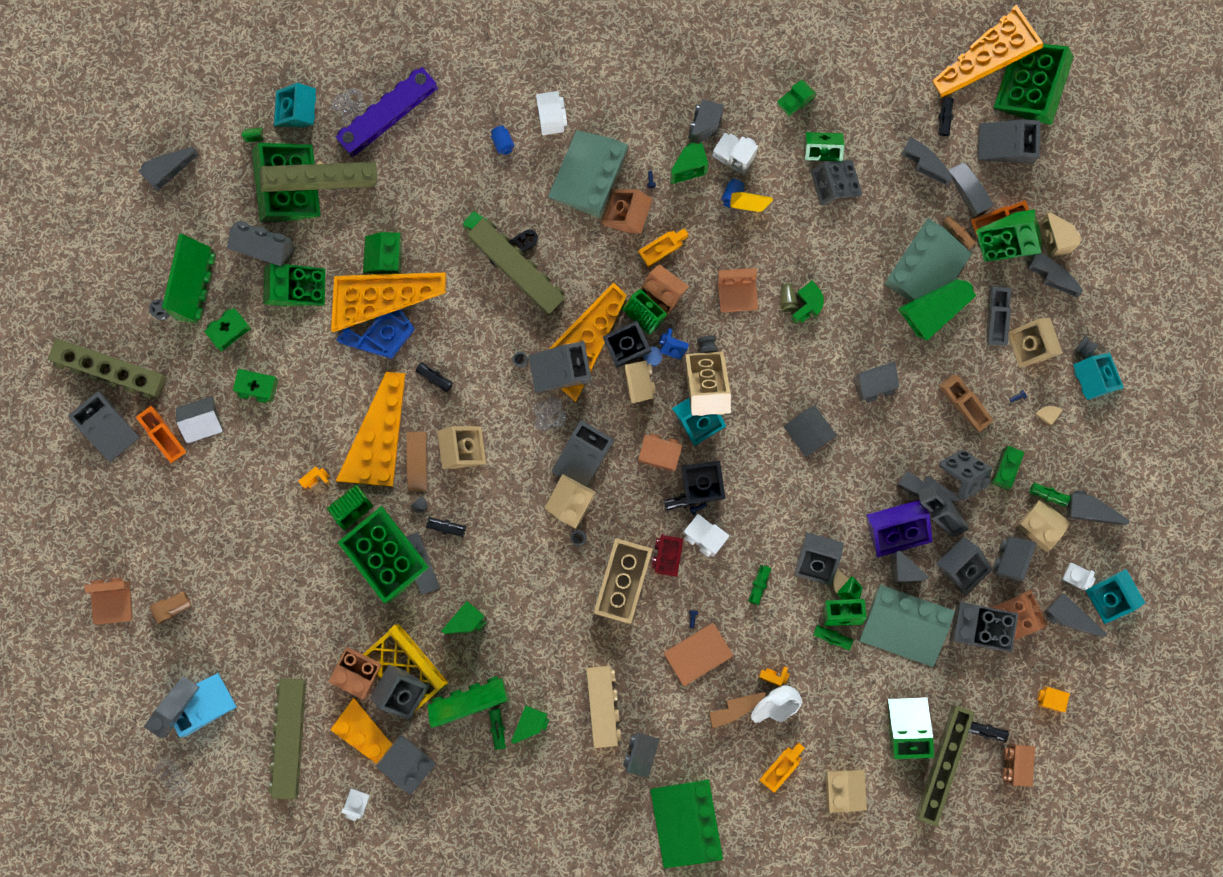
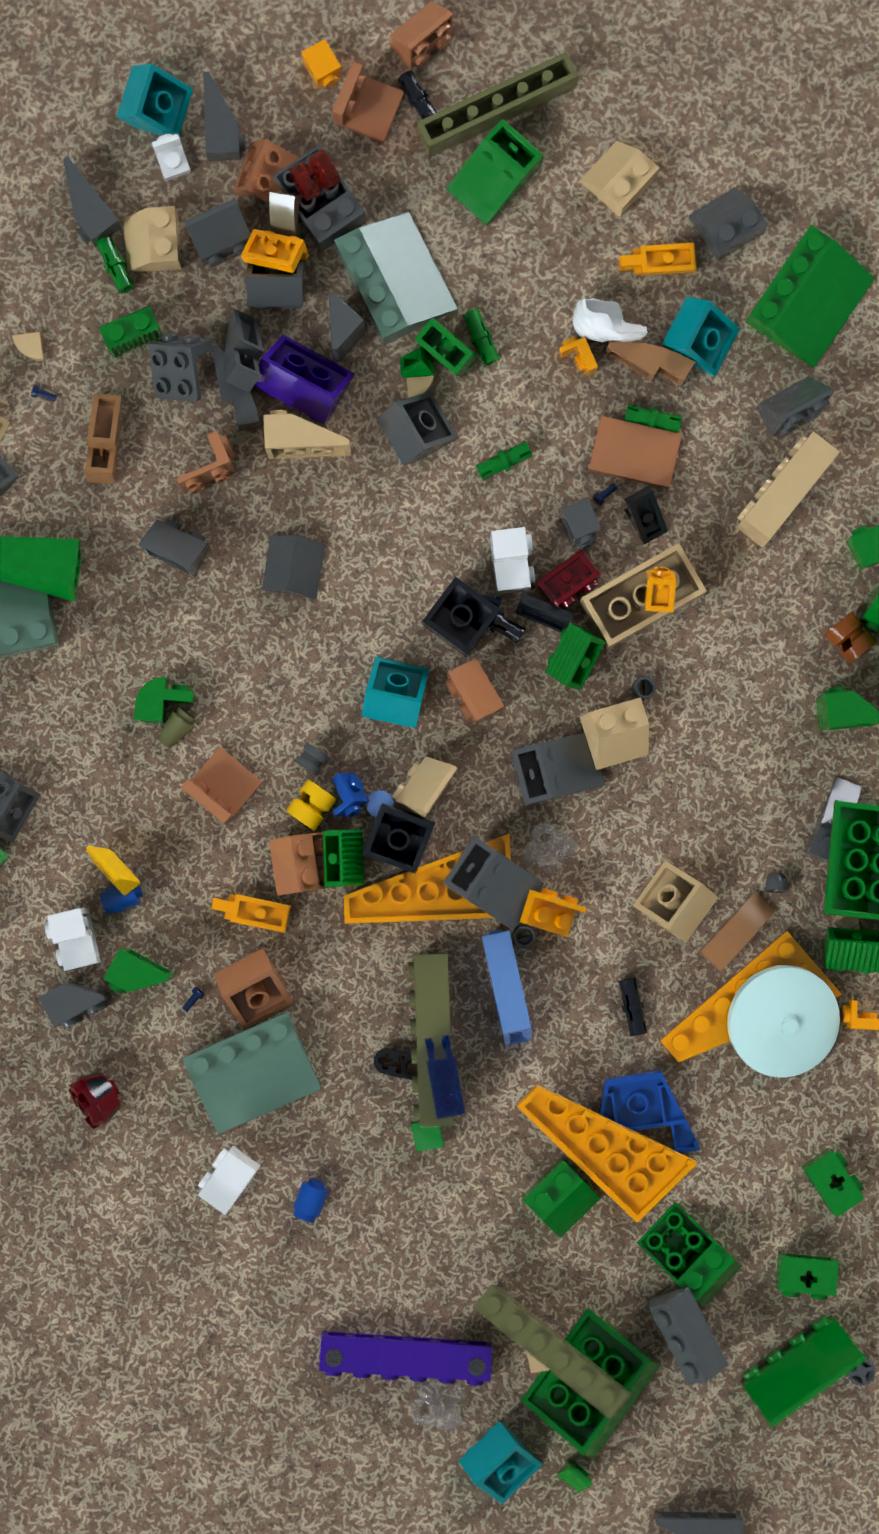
camera: 140 degrees left, 5 degrees up
(352, 439) = (783, 1021): none -> light aqua dish
(446, 527) = (770, 833): black pin -> none
(491, 249) = (444, 1081): none -> clear blue hinge
(498, 663) = (850, 637): none -> dark orange wheel
(504, 326) = (507, 987): none -> medium blue slope
(518, 381) = (549, 912): none -> light orange bracket
(617, 588) = (660, 590): none -> light orange bracket
(627, 518) = (574, 656): none -> green brick
(650, 89) = (95, 1098): none -> dark red cone
(661, 625) = (645, 515): none -> black slope
(663, 526) = (543, 613): none -> black tile
(685, 321) = (311, 804): none -> yellow wheel
(689, 586) = (580, 524): none -> dark grey brick
(706, 680) = (653, 418): none -> green pin
(708, 383) = (356, 711): tan brick -> none
(723, 747) = (701, 334): none -> teal slope
(767, 821) = (728, 223): none -> dark grey slope
(878, 488) = (297, 438): none -> tan slope
(895, 446) = (218, 470): none -> nougat bracket
(978, 575) = (274, 250): none -> light orange bracket
(989, 597) = (284, 214): none -> dark tan slope
(995, 637) = (323, 170): none -> clear red wheel
(1010, 701) = (366, 104): none -> nougat bracket

